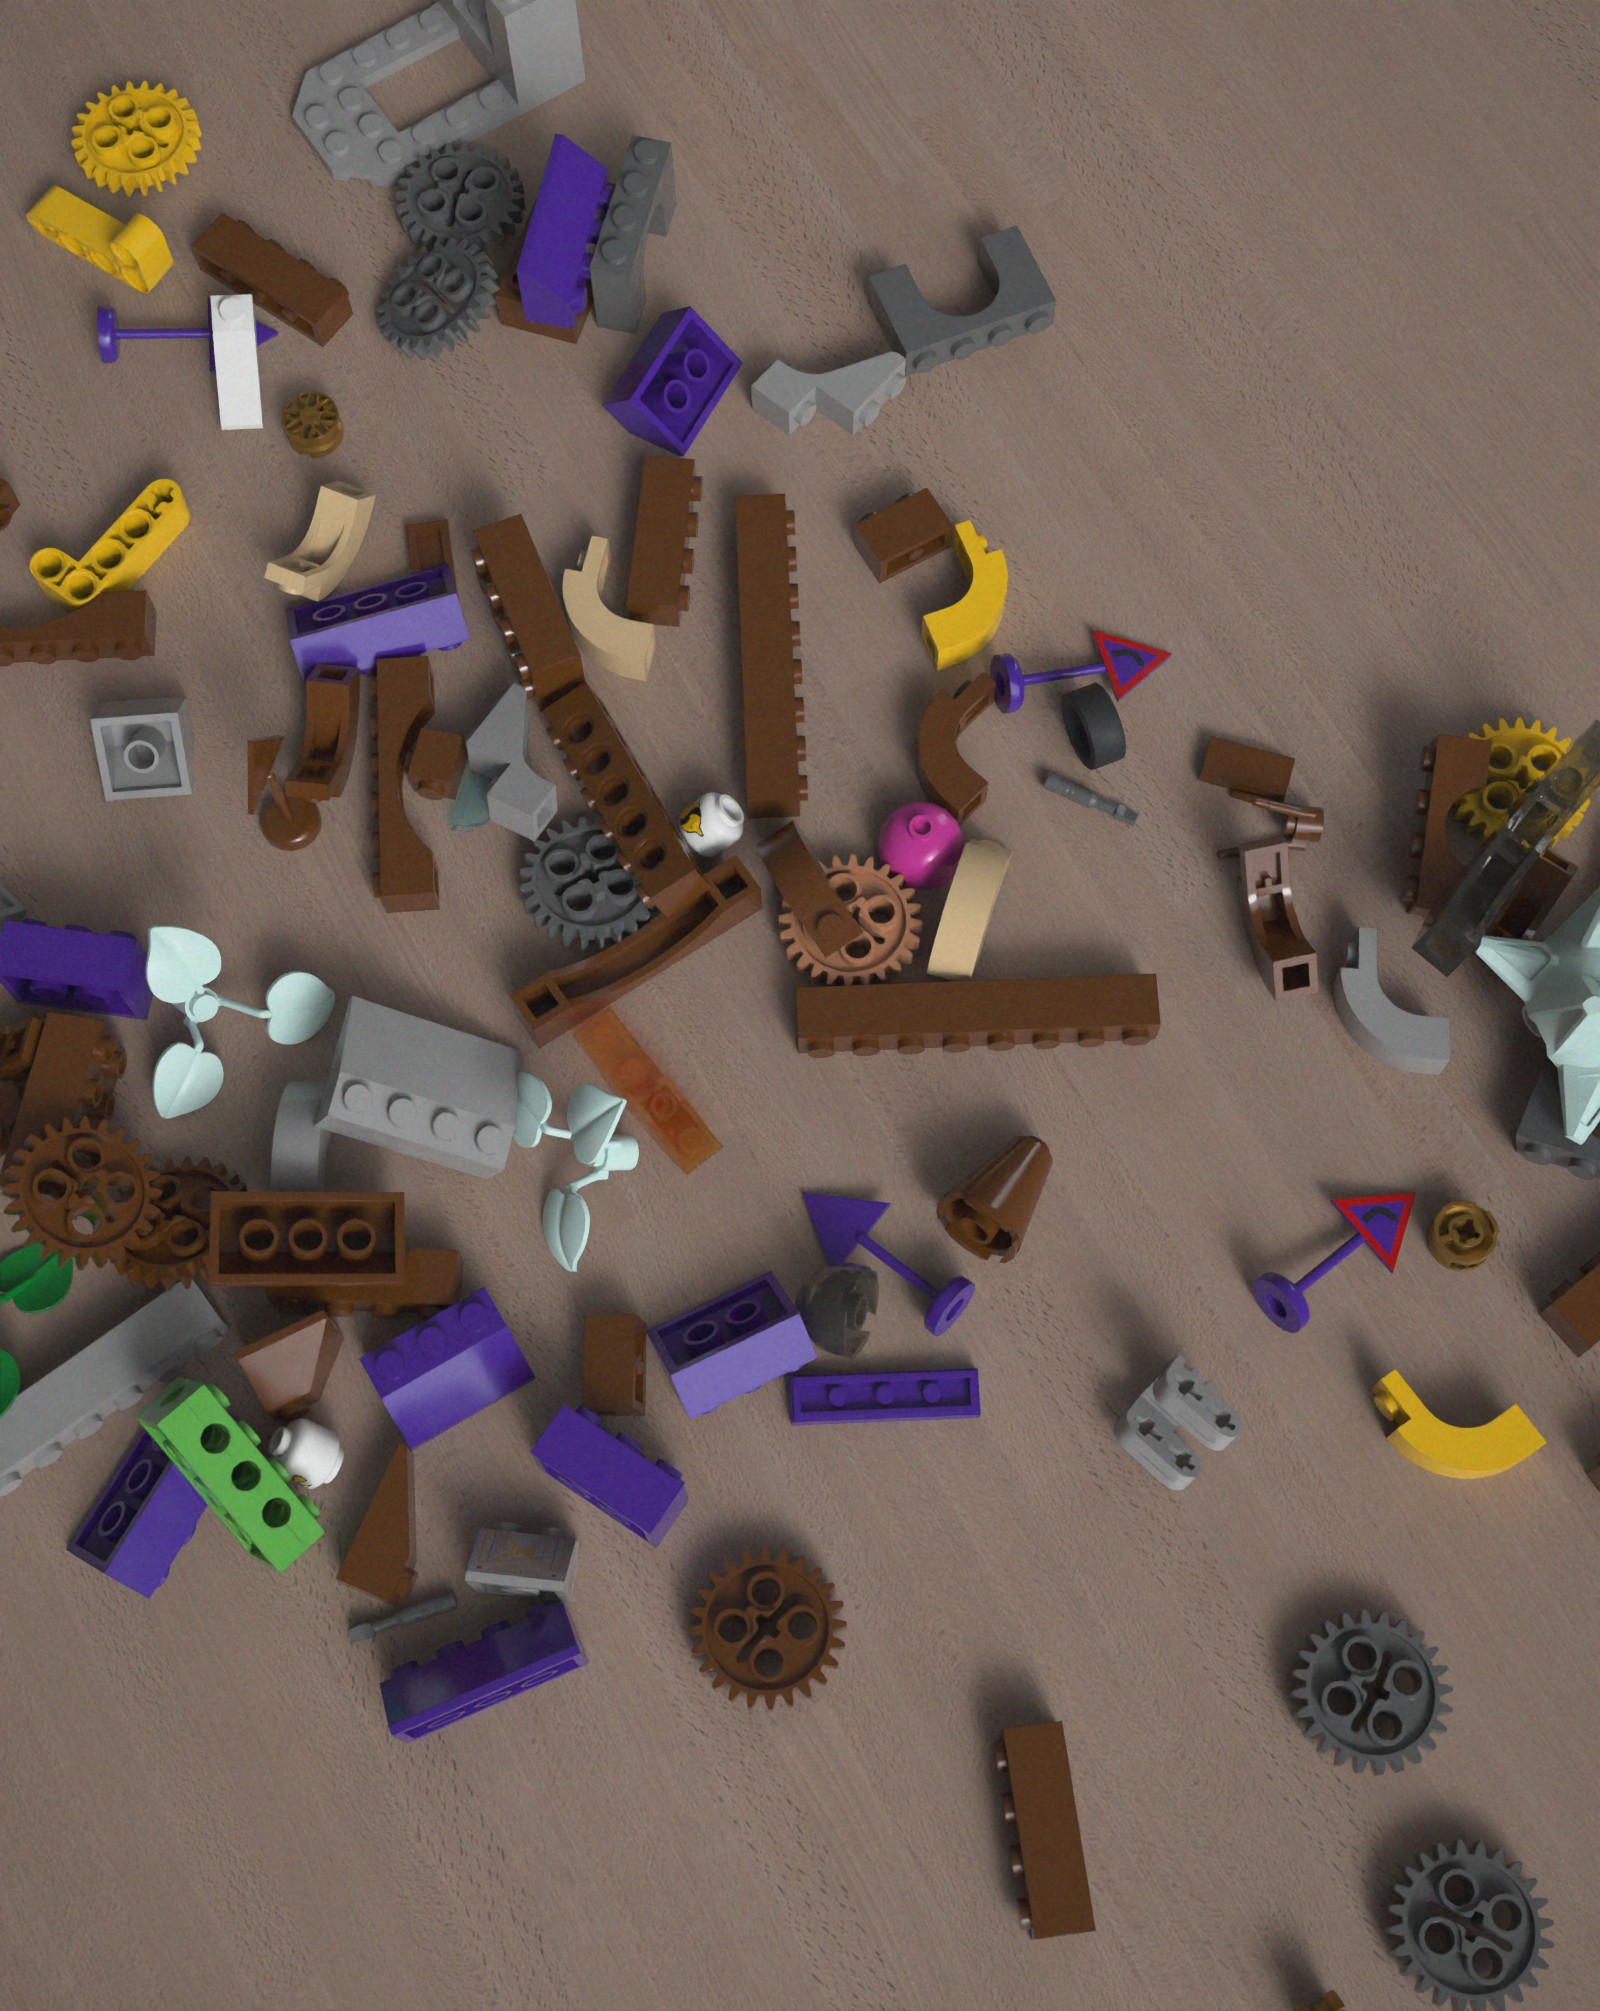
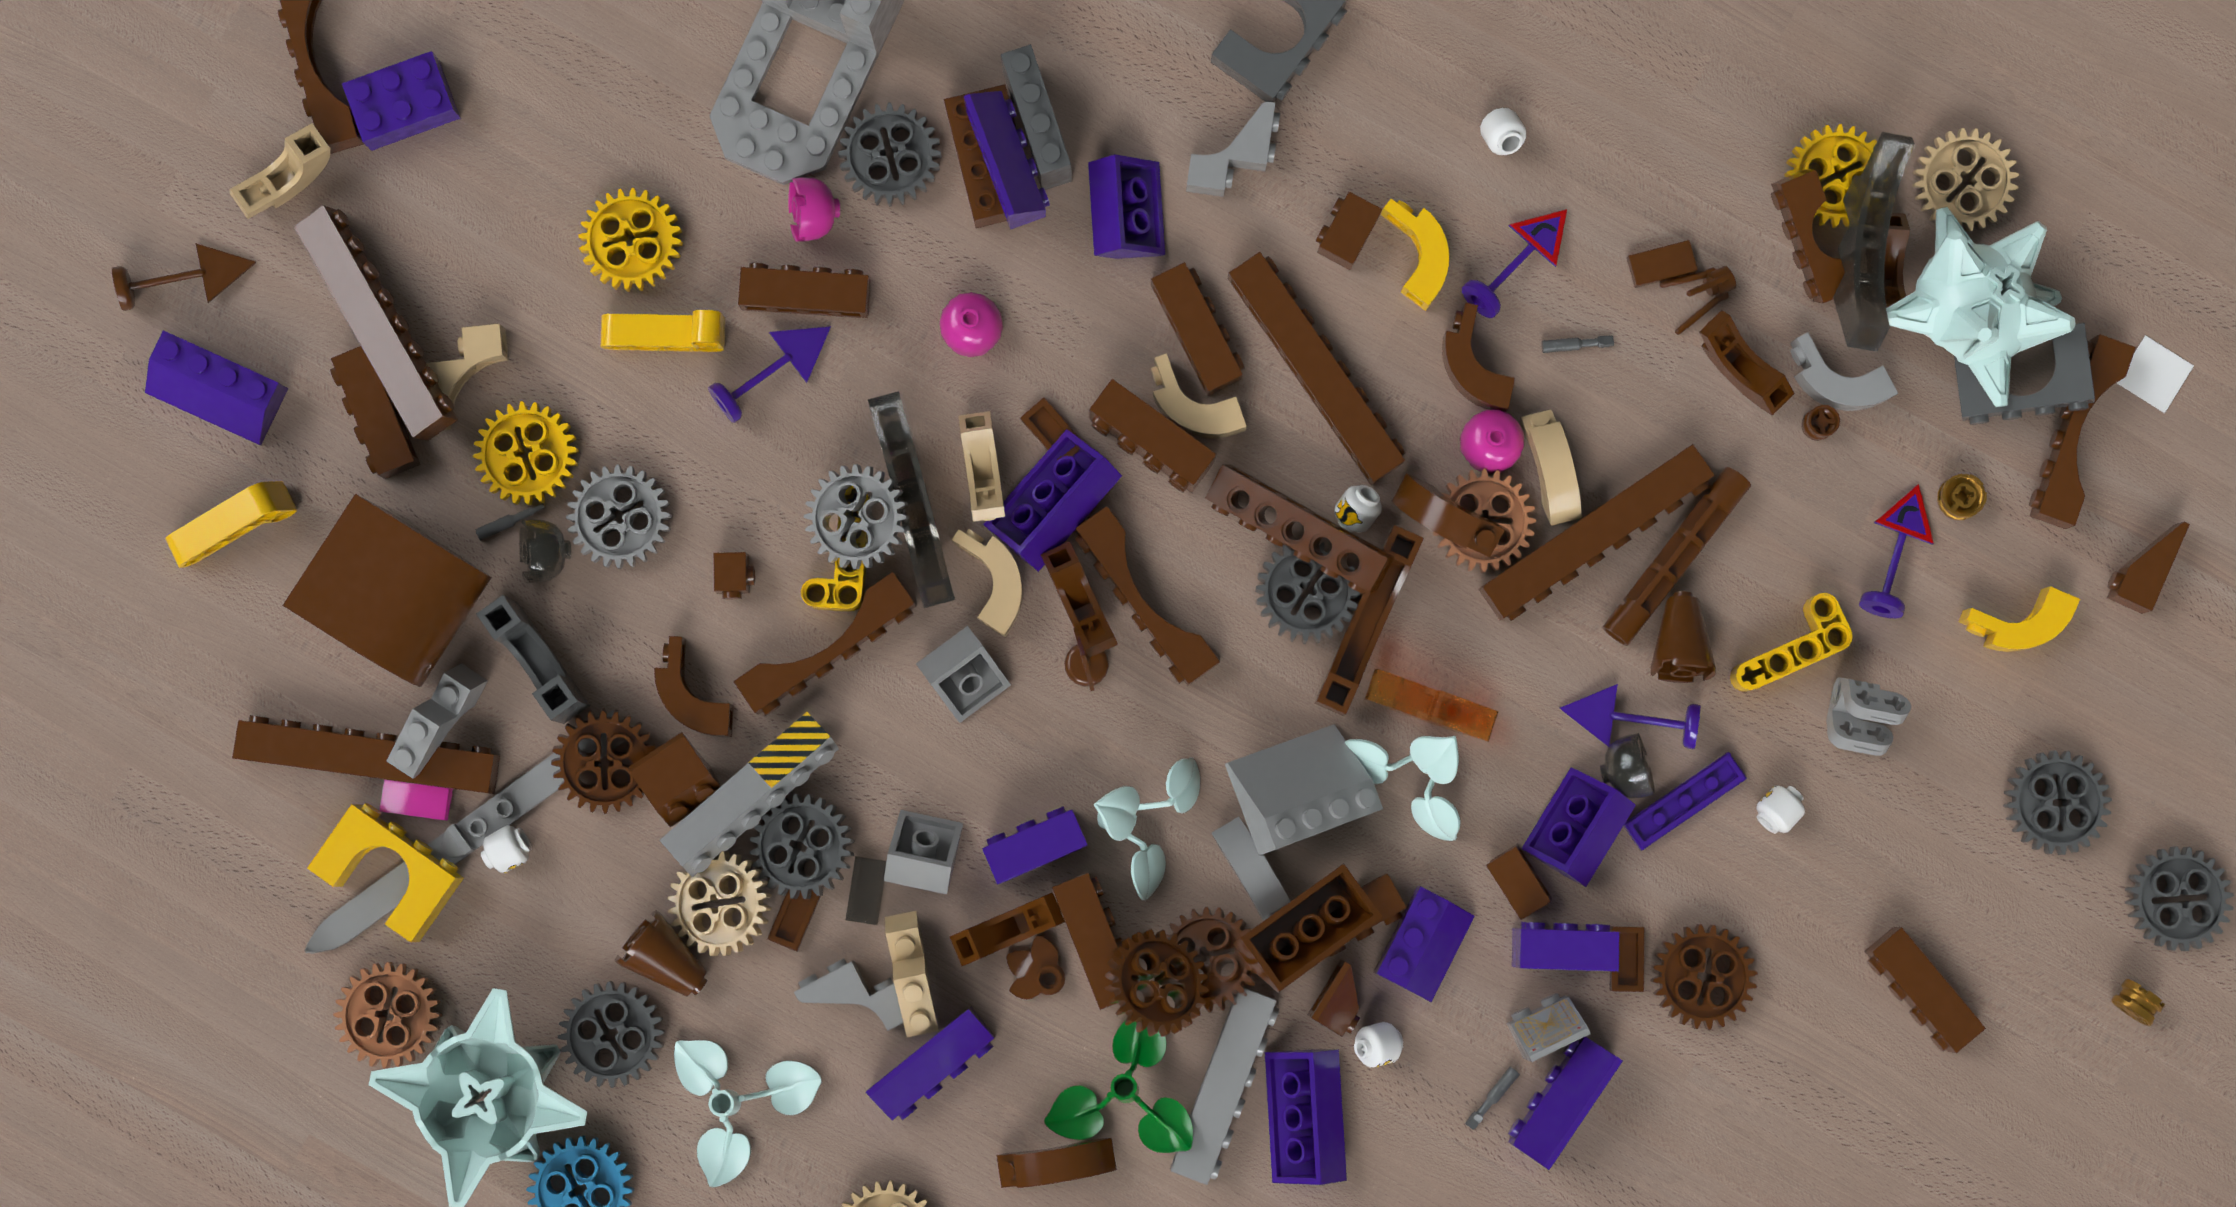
camera: 35 degrees left, 15 degrees up
(145, 505) = (832, 501): none -> light grey gear
(231, 1472) = (1322, 1076): bright green brick -> none
(236, 361) = (827, 370): white slope -> none
(242, 489) = (905, 468): none -> clear smoke arch
(263, 681) = (1007, 590): none -> tan arch
(302, 424) = (910, 380): pearl gold wheel -> none
(338, 202) = (811, 208): none -> dark pink cylinder
(385, 1543) = (1458, 1068): reddish brown slope -> none
(423, 405) = (971, 324): none -> dark pink cylinder
(436, 764) = (1157, 573): reddish brown brick -> none
(458, 277) = (926, 271): dark grey gear -> none
(472, 805) = (1196, 572): clear light blue tile -> none
(499, 751) = (1196, 542): light grey arch -> none
(686, 1547) = (1631, 960): none -> reddish brown tile
(998, 1475) = (1780, 809): none -> white head
(1057, 1097) = (1676, 556): none -> reddish brown piece
(1093, 726) = (1556, 298): black tyre -> none
(1128, 1286) = (1789, 651): none -> yellow beam
(1146, 526) = (1503, 131): none -> white head
(1337, 1037) = (1826, 419): none -> reddish brown wheel

